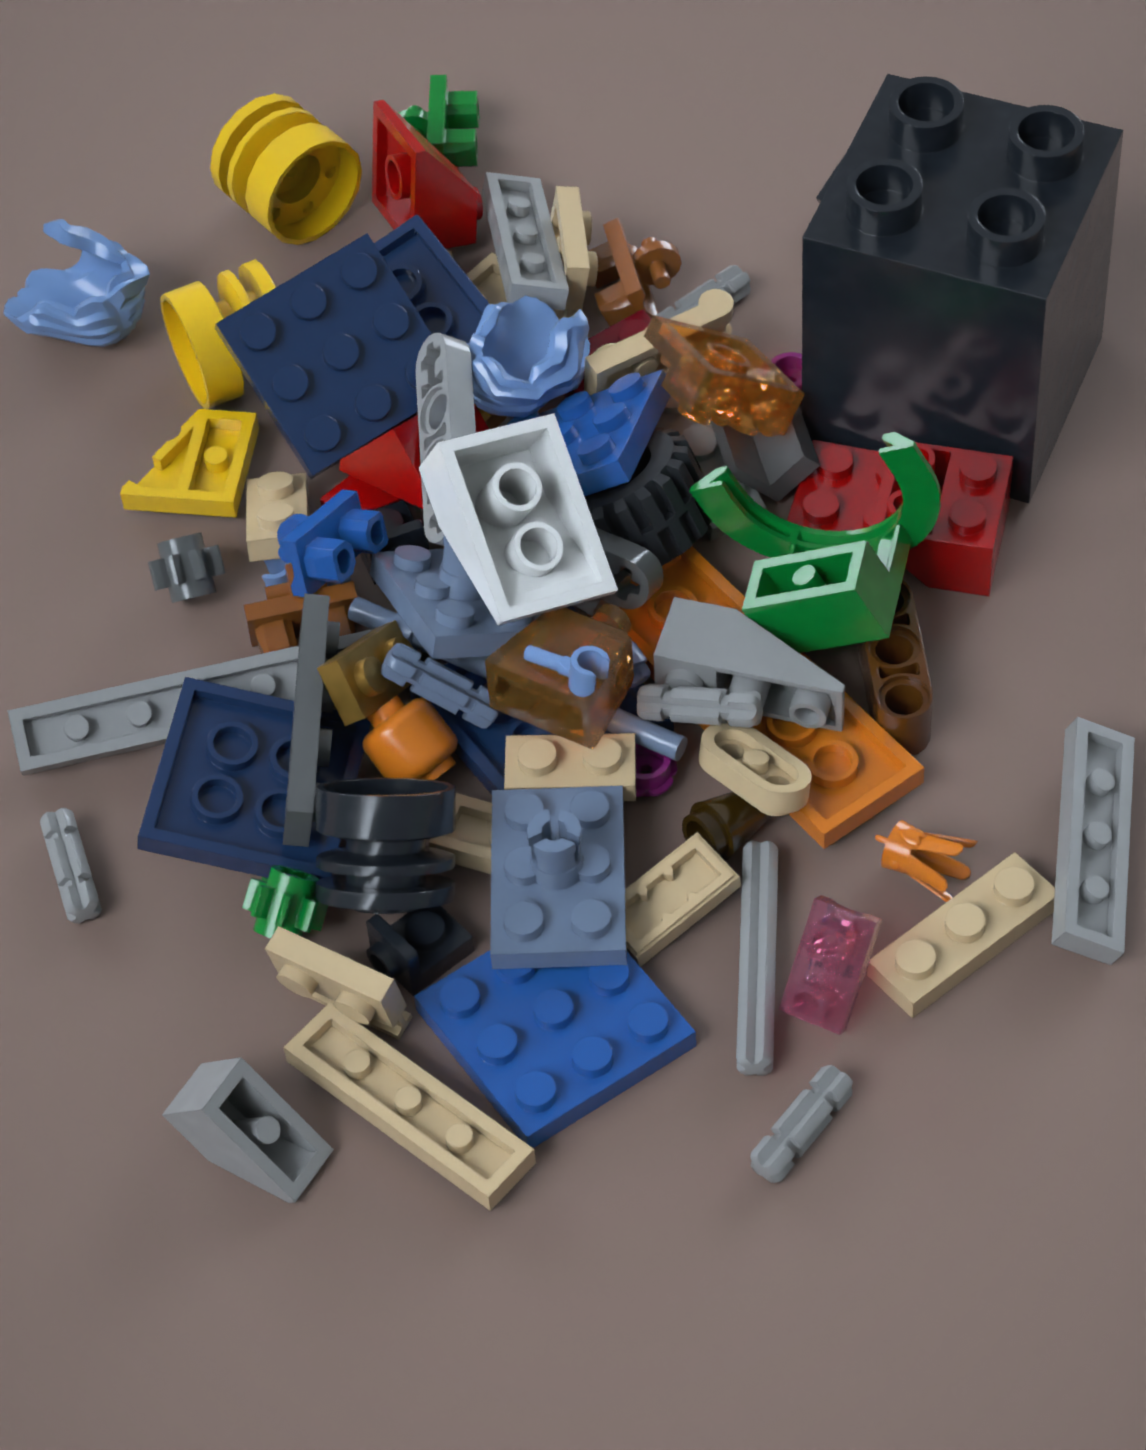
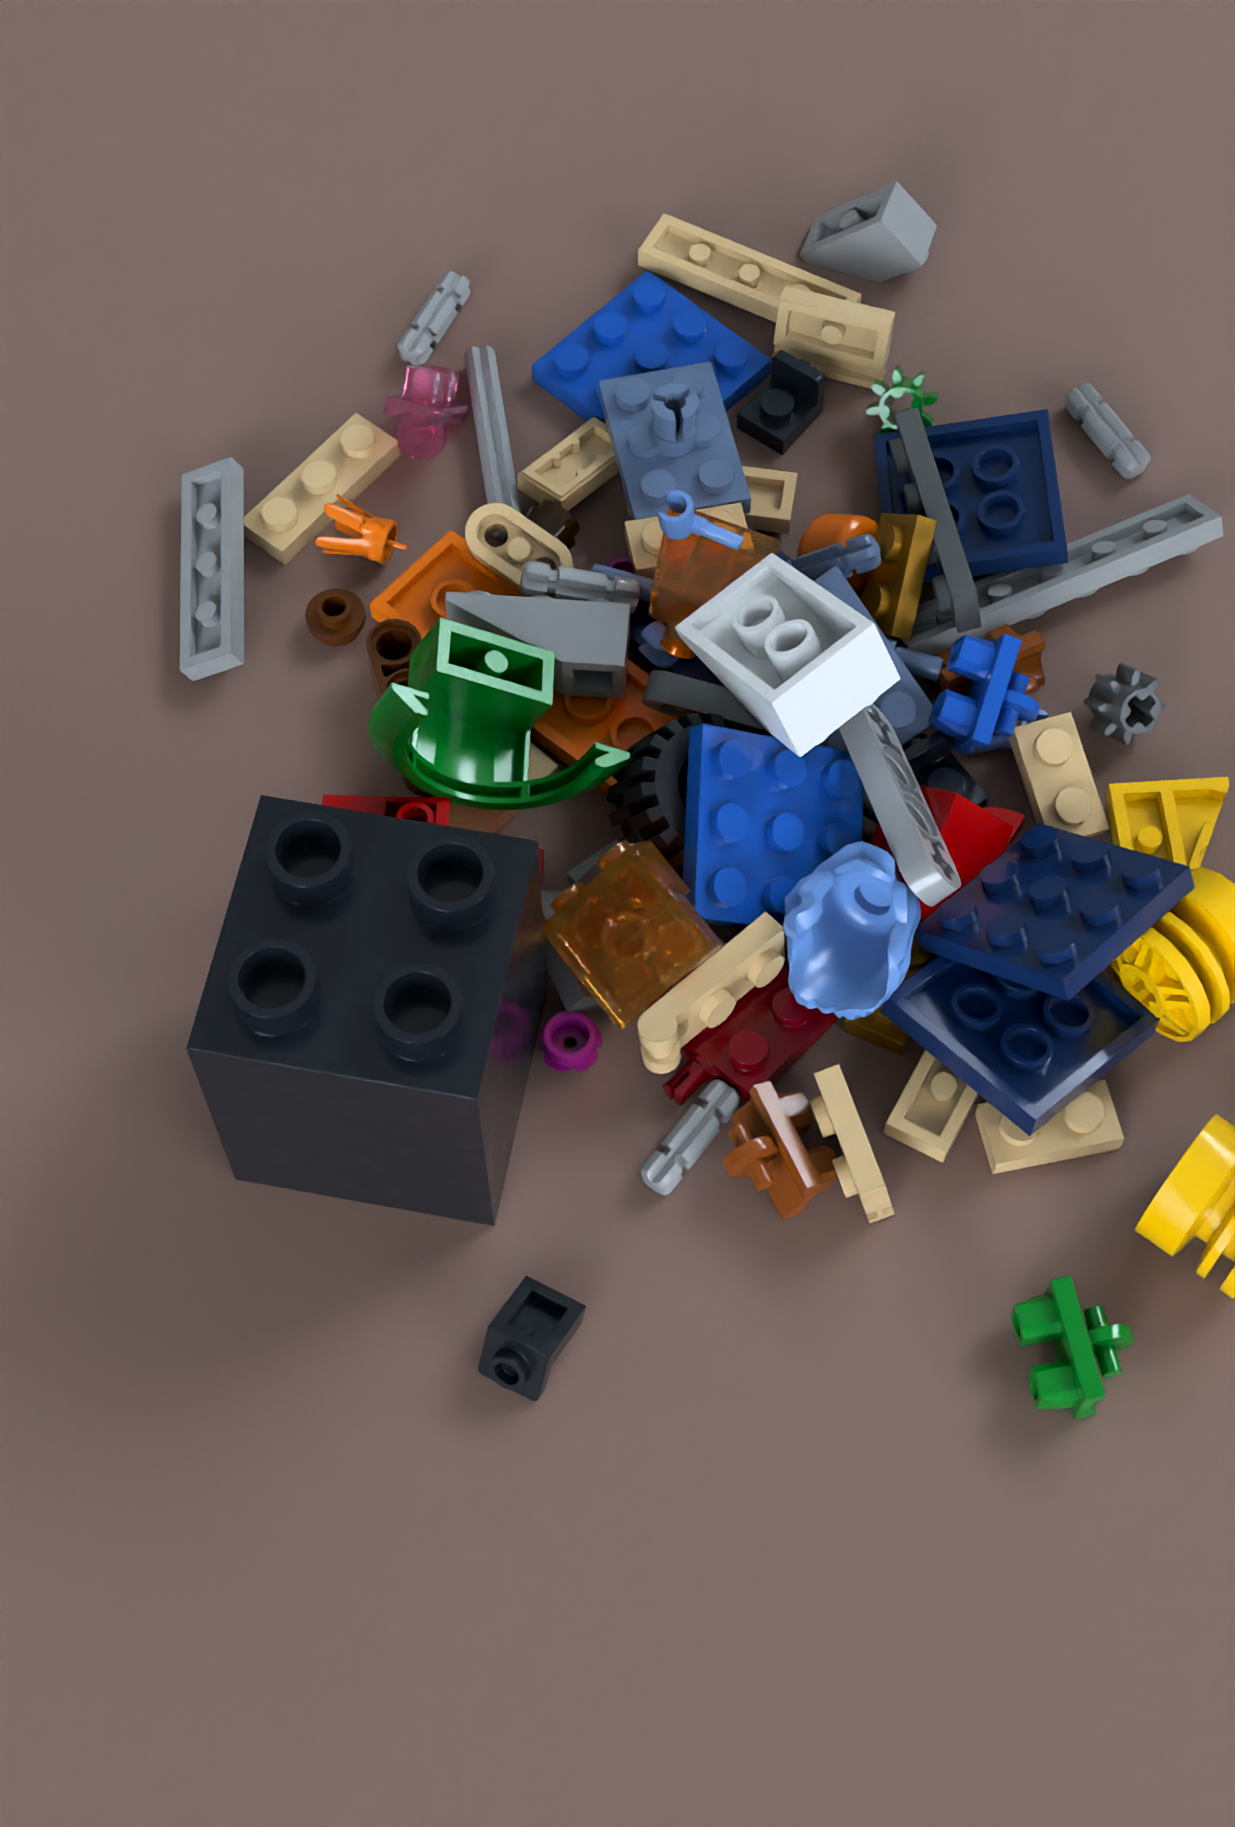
camera: 165 degrees right, 10 degrees up
(385, 851) = (847, 442): black wheel -> none
(418, 179) = (1053, 1210): red slope -> none
(524, 239) = (910, 1154): light grey plate -> none
(960, 795) = (335, 629): none -> reddish brown plate

